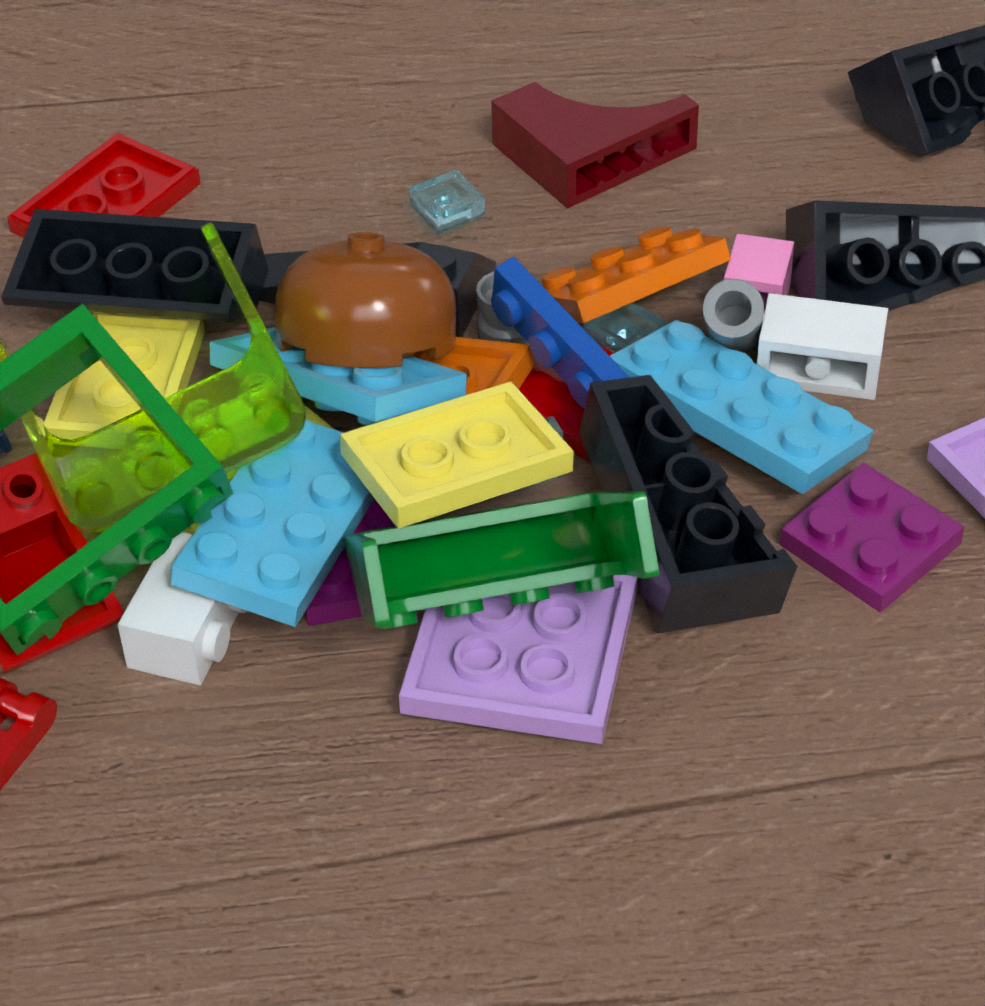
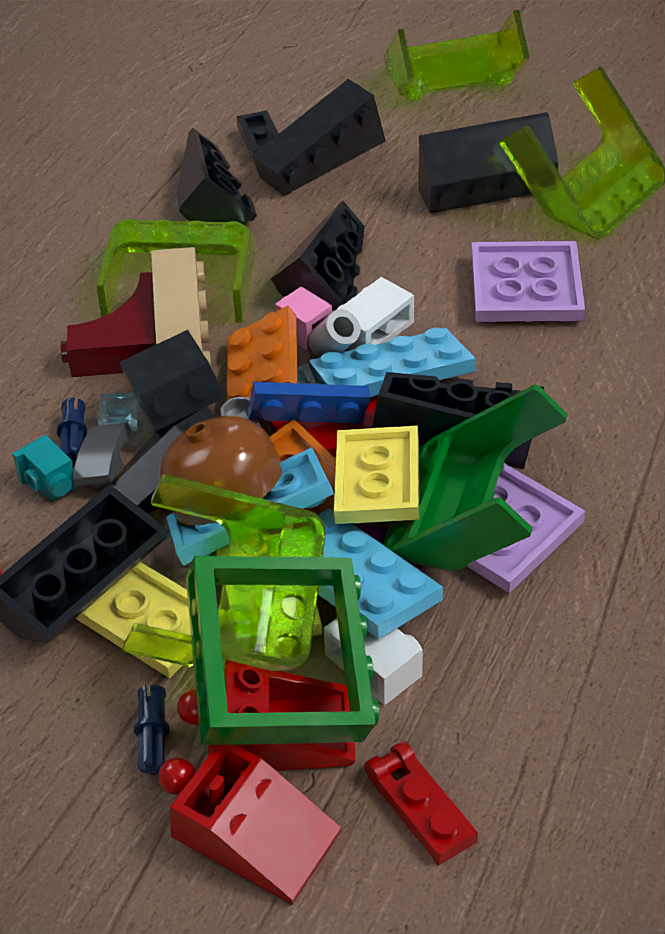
camera: 60 degrees left, 0 degrees up
(300, 186) = (44, 468): none -> teal brick
(373, 211) = (100, 456): none -> dark grey slope
(385, 179) = (72, 427): none -> dark blue axle
(500, 205) = (171, 380): none -> black slope
(639, 168) = (178, 295): none -> tan wedge
(838, 151) = (150, 235): none -> clear neon green windscreen
(871, 536) = (514, 359): magenta plate -> none

